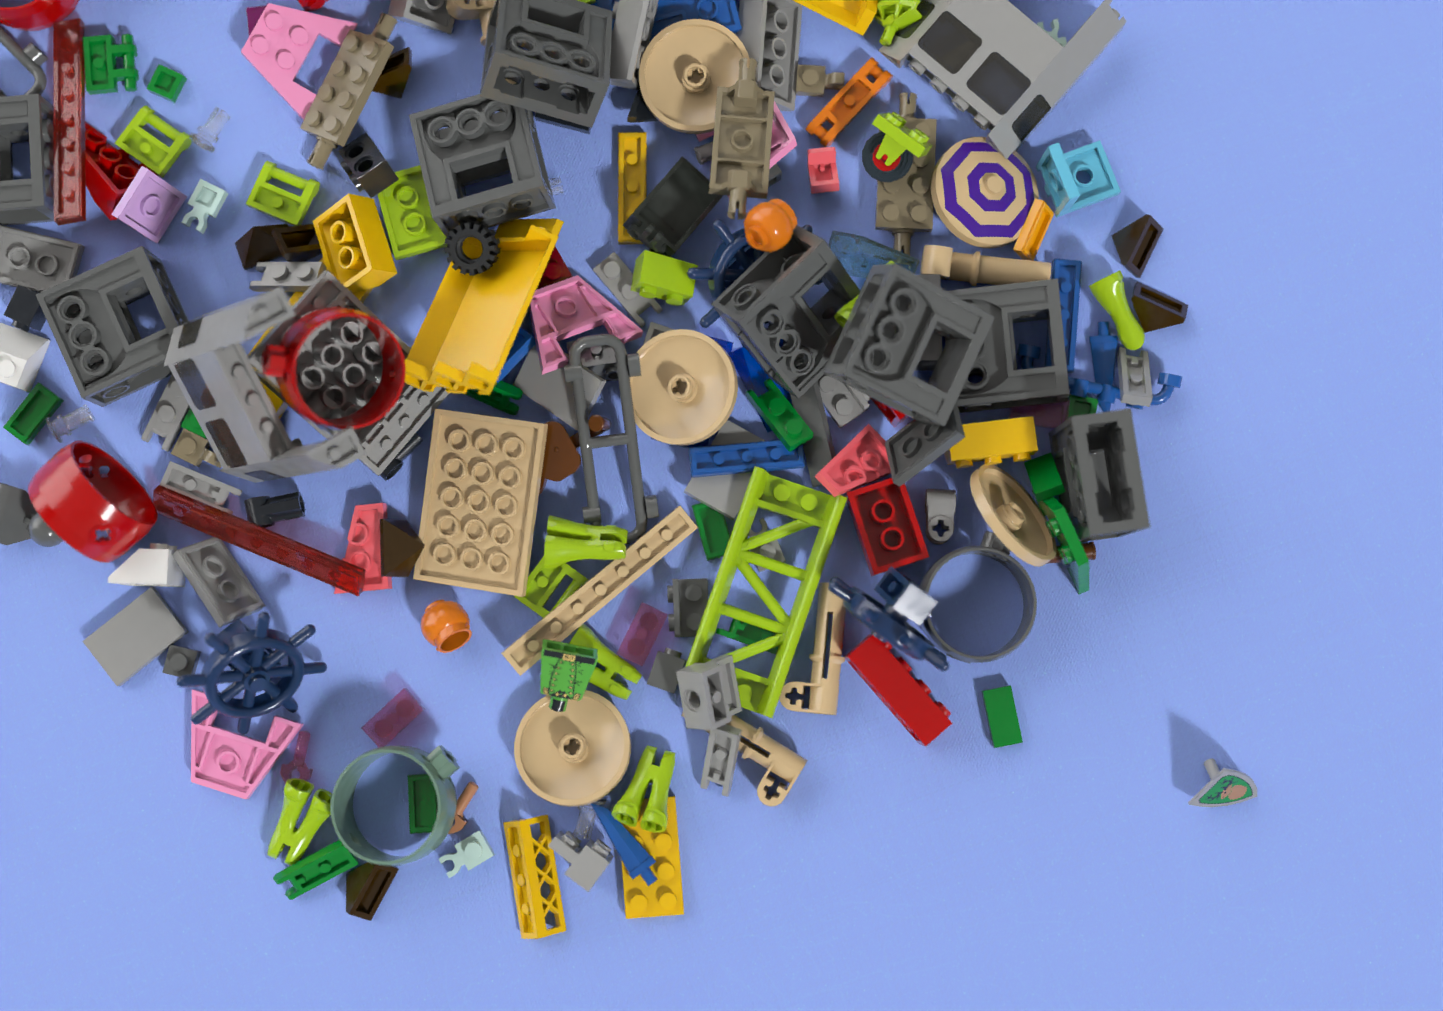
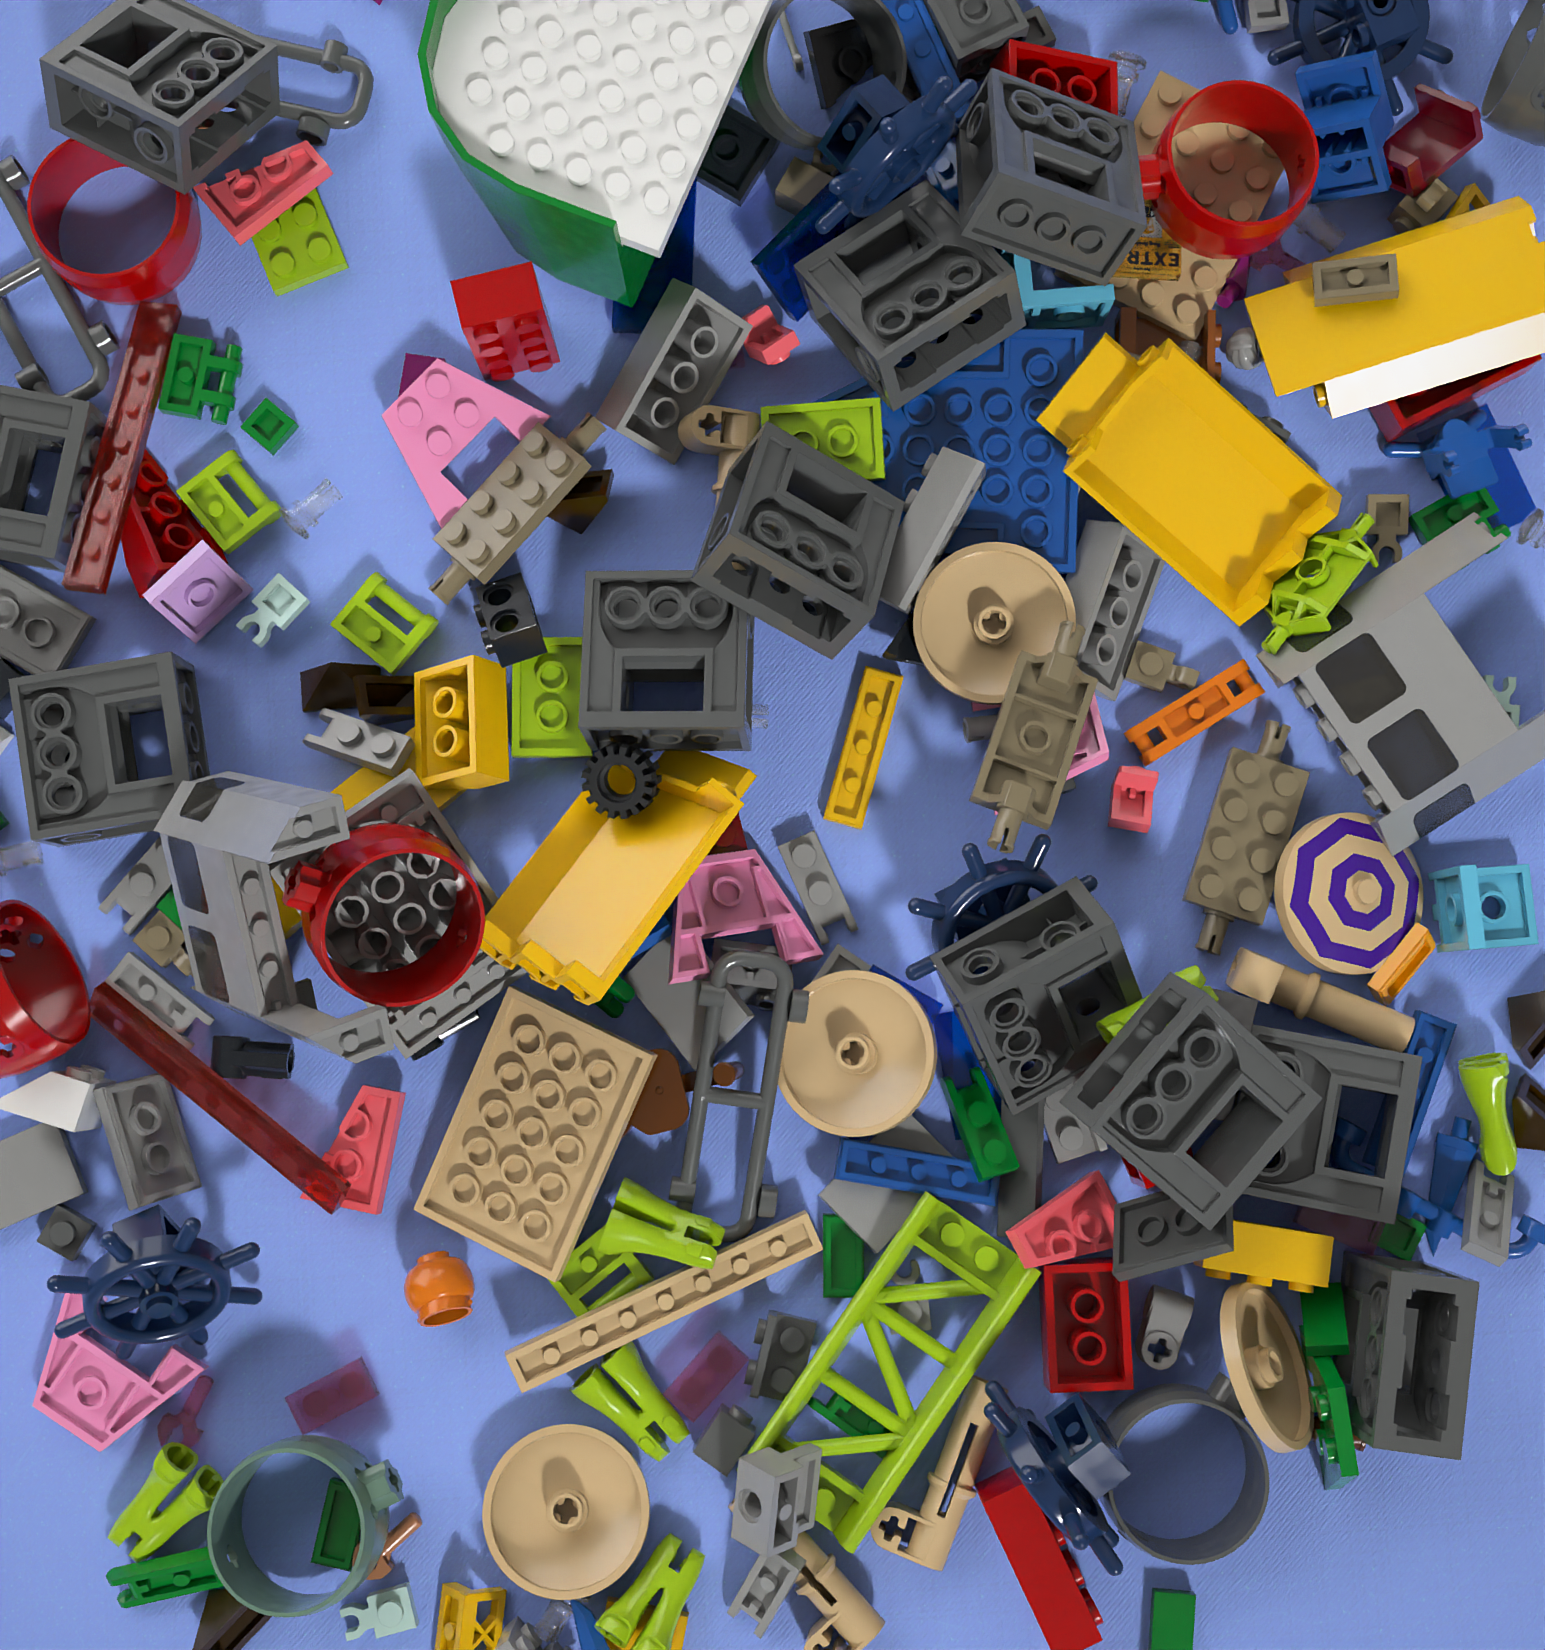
camera: 15 degrees right, 0 degrees up
(398, 548) = (406, 1161): dark brown slope -> none
(565, 672) = (587, 1407): bright green torso -> none
(663, 278) = (872, 890): lime brick -> none
(672, 209) = (909, 798): pearl dark grey piece -> none
(770, 225) = (1042, 874): orange piece -> none
(860, 253) = (1161, 940): clear light blue slope -> none
(890, 152) = (1237, 805): plate -> none

